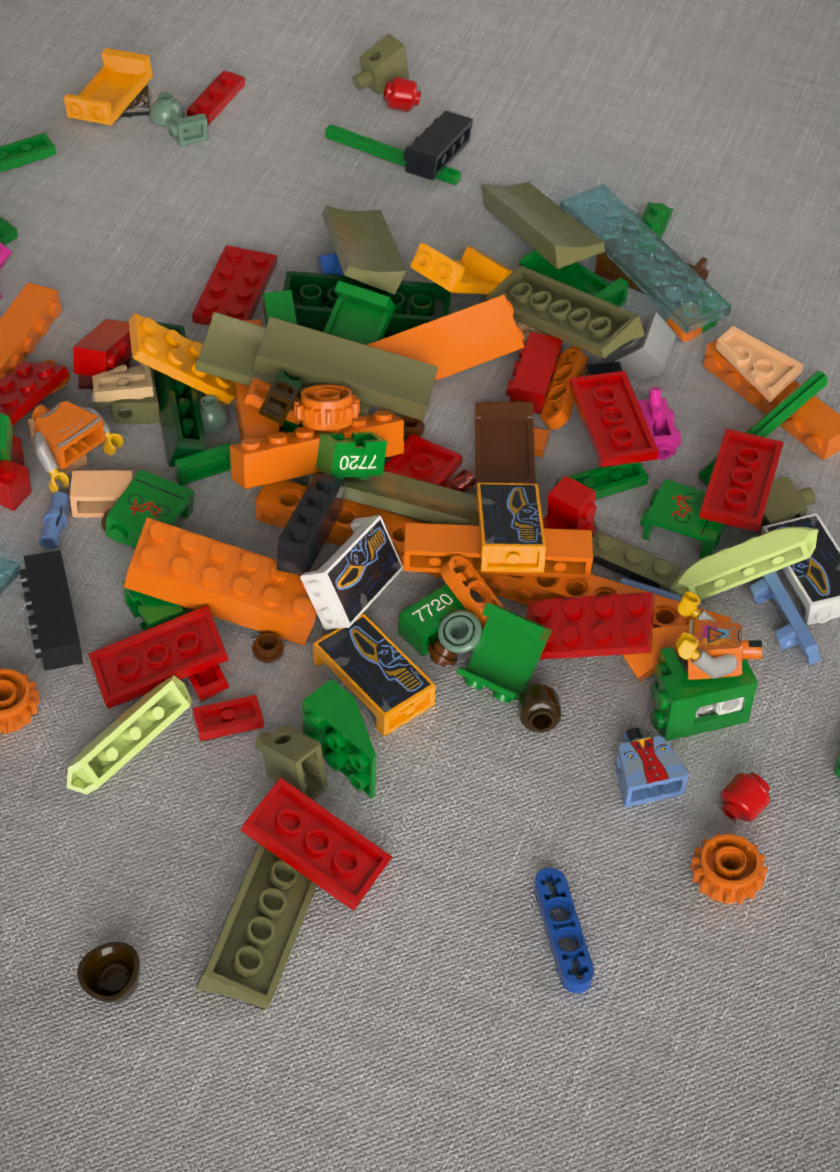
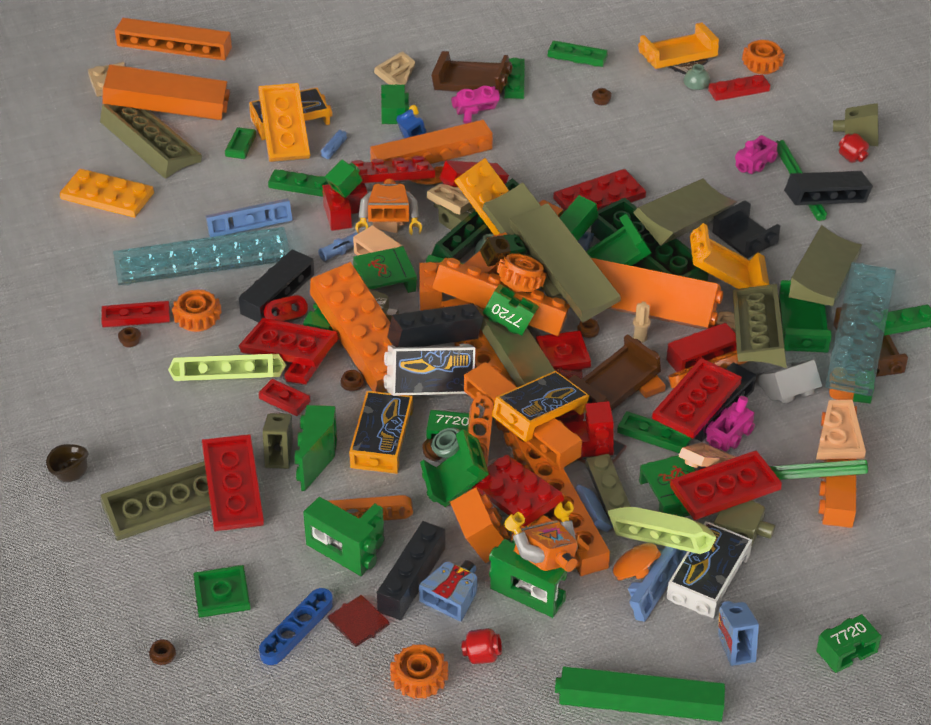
camera: 50 degrees right, 5 degrees down
(99, 185) = (601, 96): none -> reddish brown plate
(99, 625) = (284, 308): none -> red plate
(188, 129) = (693, 94): sand green bracket -> none
(201, 52) = (763, 57): none -> orange gear
(215, 493) = (429, 297): none -> orange brick
(329, 155) = (756, 155): none -> dark pink brick
(410, 234) = (742, 232): none -> black panel
(446, 962) = (221, 591): none -> green tile
(460, 384) = (641, 321): none -> tan axle
(466, 764) = (386, 502): none -> orange beam
(486, 1064) = (159, 647): none -> reddish brown plate
(499, 801) = (343, 536): none -> green brick
(539, 708) = (439, 513): dark brown head -> none
(593, 782) = (410, 570): none -> black brick
(603, 683) = (480, 522): none -> orange brick
(603, 873) = (358, 620): none -> clear red piece
(684, 467) = (703, 455): none -> light nougat wing
(757, 608) = (636, 561): none -> orange dish

